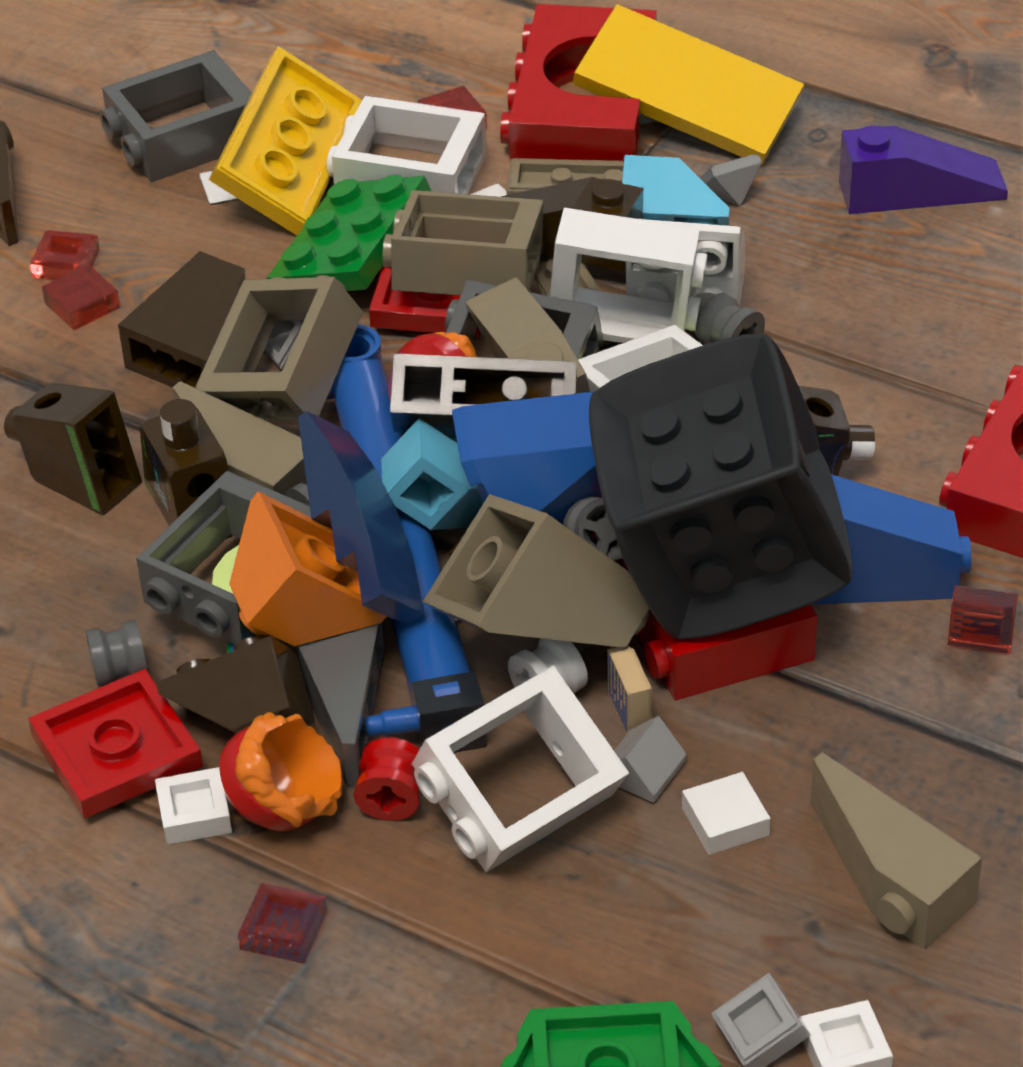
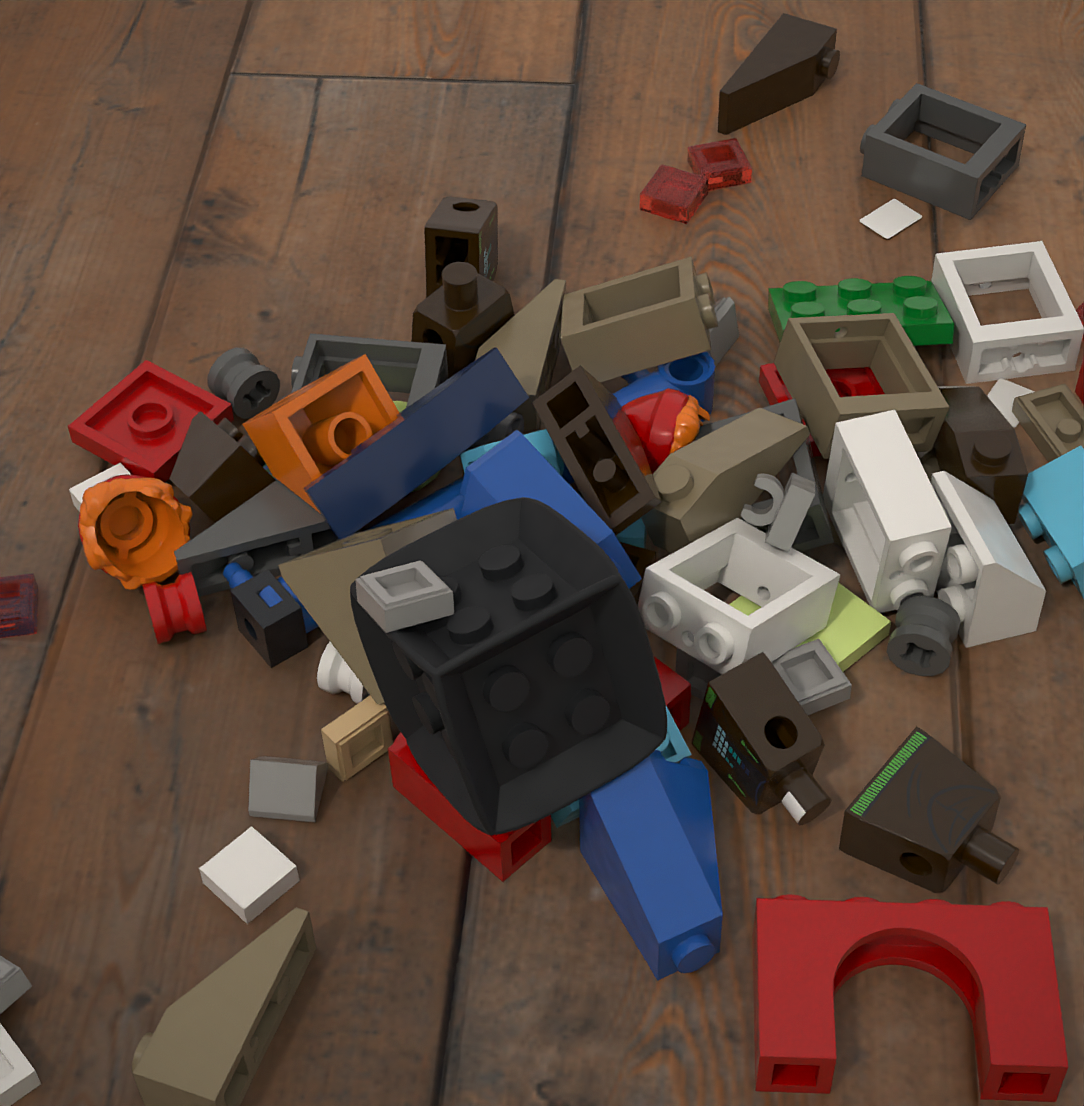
camera: 65 degrees right, 5 degrees up
(180, 322) = (649, 243): dark brown slope -> none
(284, 141) = (906, 219): yellow tile -> none
(569, 736) = (252, 708): white window -> none
(603, 319) = (786, 511): none -> light grey tile
(684, 475) = (404, 596): none -> light grey tile
(903, 388) = (927, 818): none -> dark brown torso
(982, 619) = (601, 1004): clear red tile -> none

